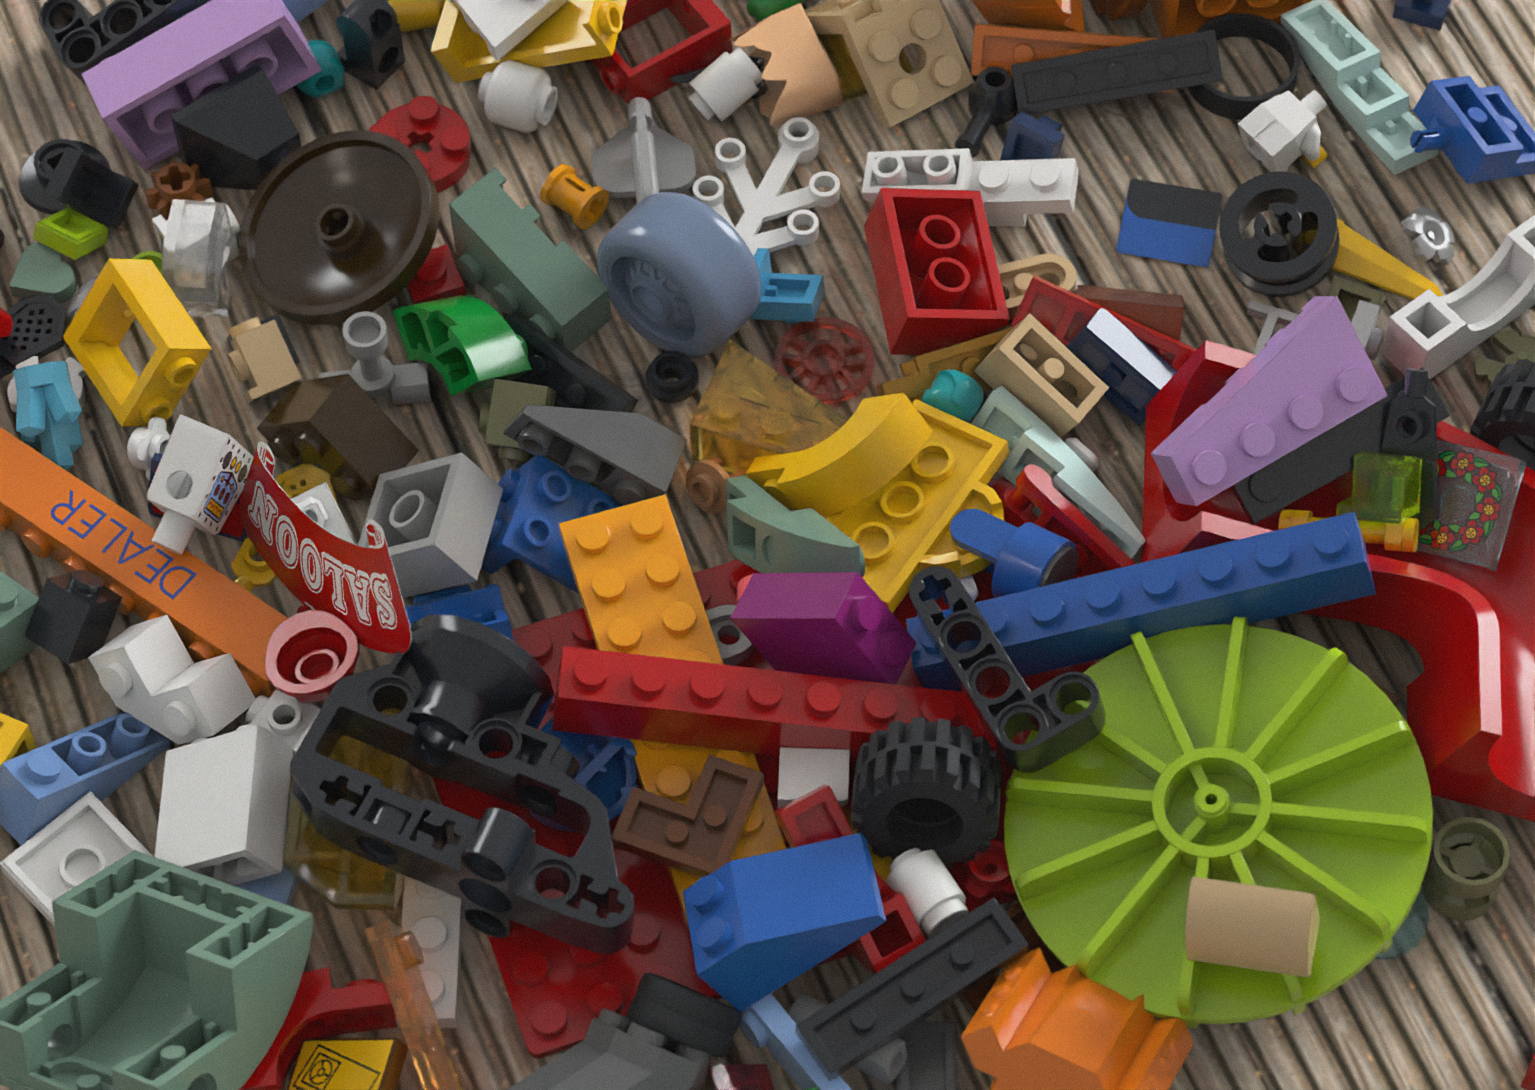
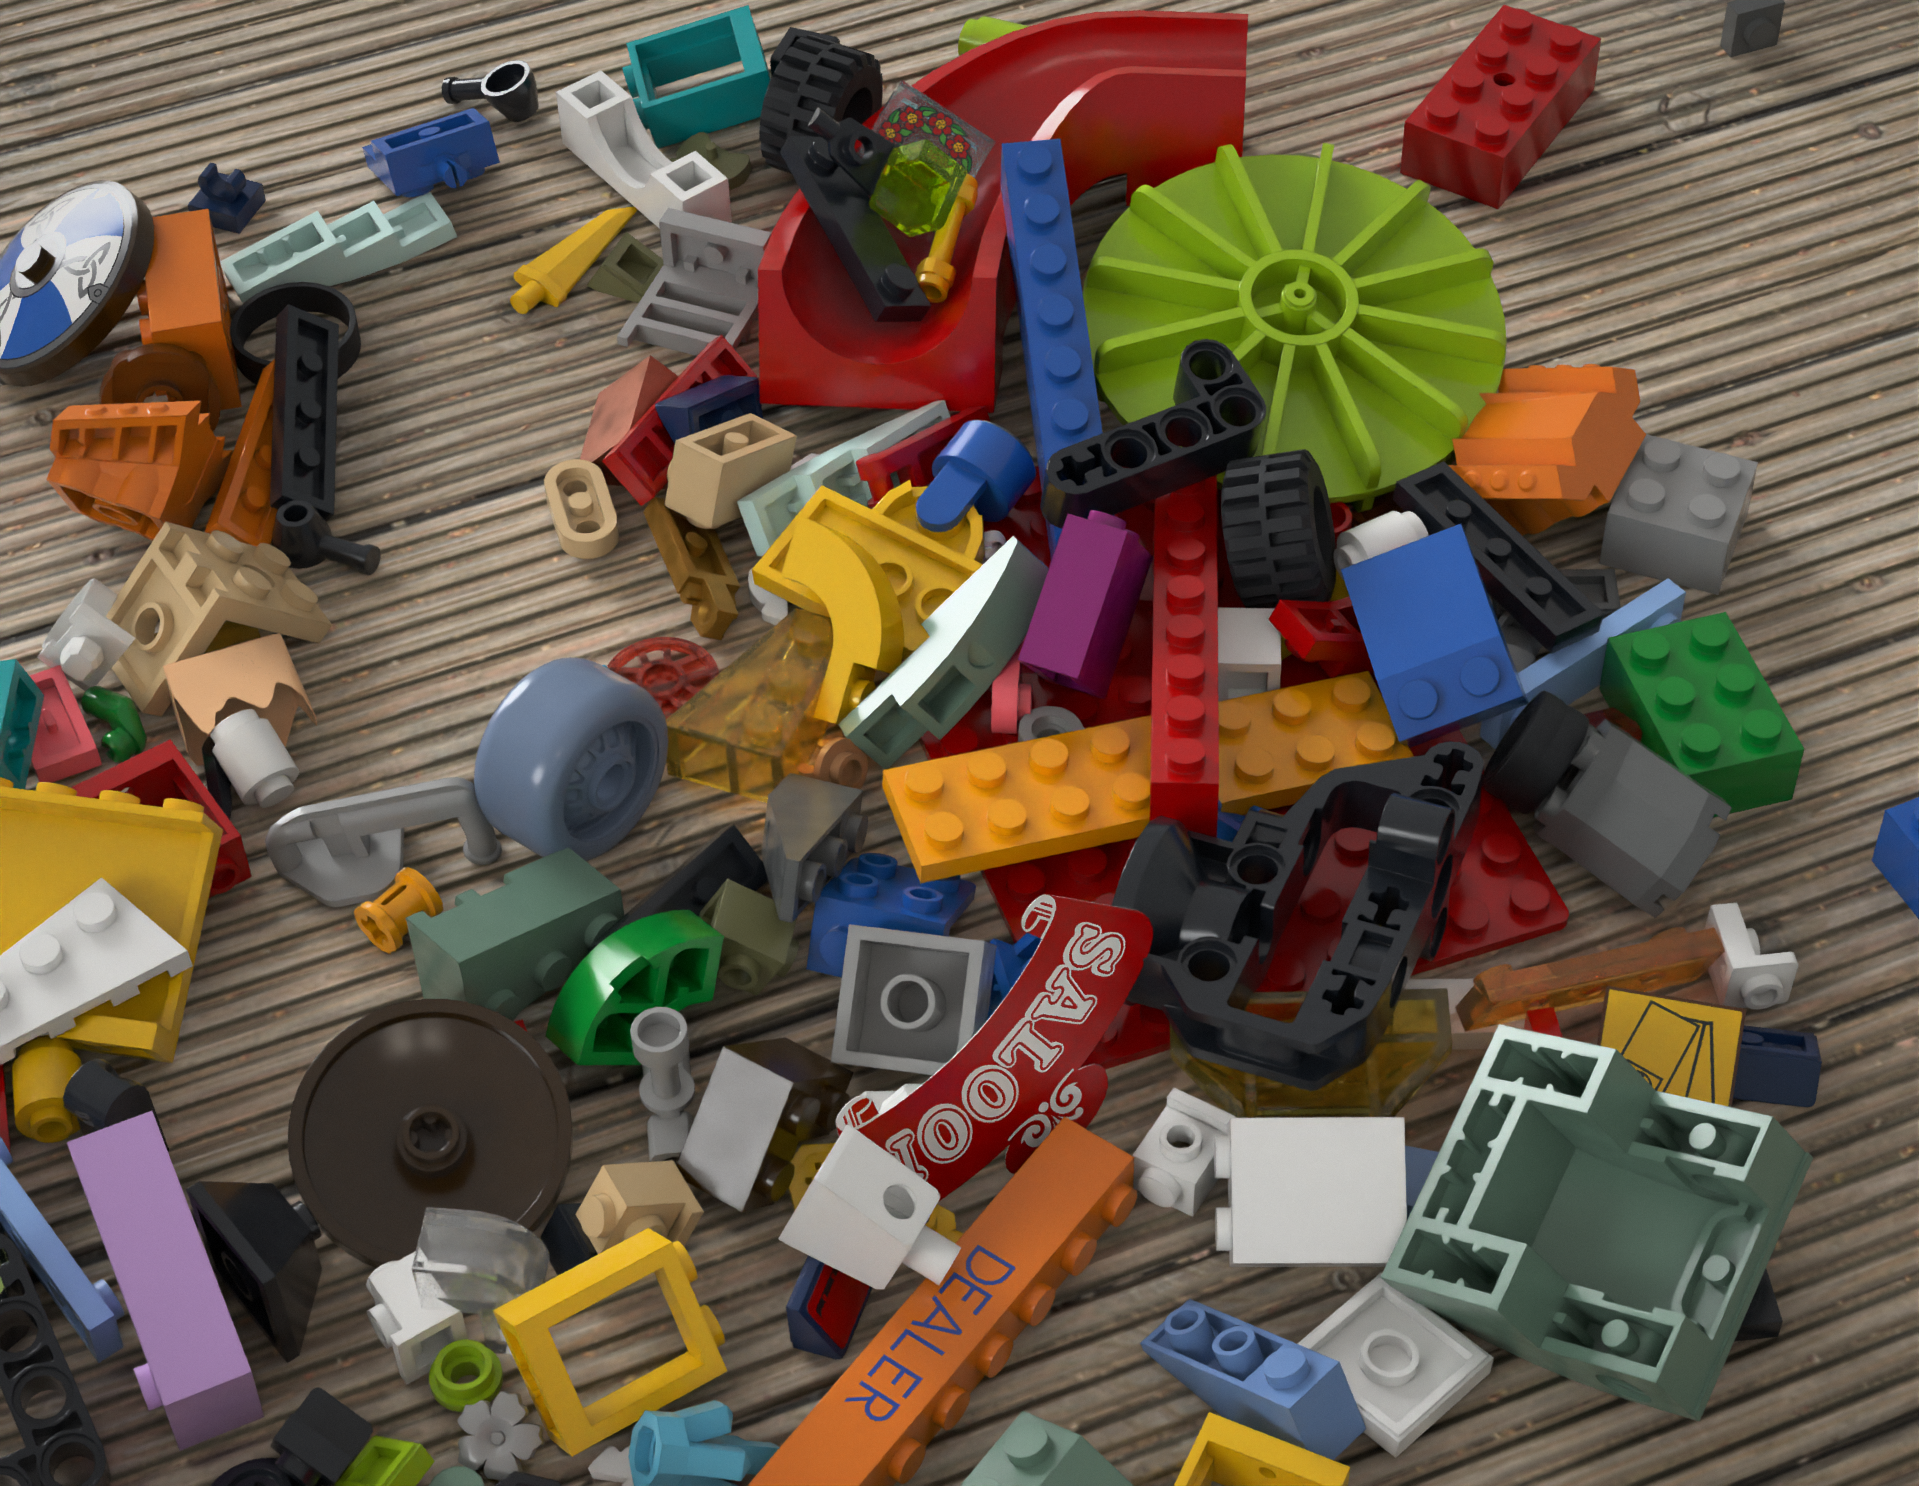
camera: 90 degrees left, 10 degrees down
(73, 615) = (1034, 1376): black brick -> none
(146, 442) = (759, 1338): white plate -> none
(162, 687) = (1144, 1268): white brick -> none
(177, 182) = (333, 1343): dark orange gear -> none
(311, 655) = (1113, 1090): piece -> none
(438, 126) = (252, 1069): red plate -> none
(518, 96) = (232, 969): white head -> none
(672, 365) = (677, 814): black plate -> none
(695, 835) = (1325, 719): reddish brown plate -> none
(765, 202) = (342, 712): white plant -> none
(934, 268) = (563, 569): red slope -> none
(955, 394) = (742, 545): teal piece -> none
(1007, 186) = (440, 544): white slope -> none
(1032, 138) = (390, 493): dark blue tile -> none
(1169, 223) = (494, 407): sticker -> none
(1251, 926) = (1449, 257): tan brick -> none
(1283, 398) = (838, 235): lavender wedge -> none
(1284, 130) = (401, 298): white piece -> none
(1294, 208) = (546, 274): black wheel -> none
(1430, 236) = (546, 208): light grey plant -> none

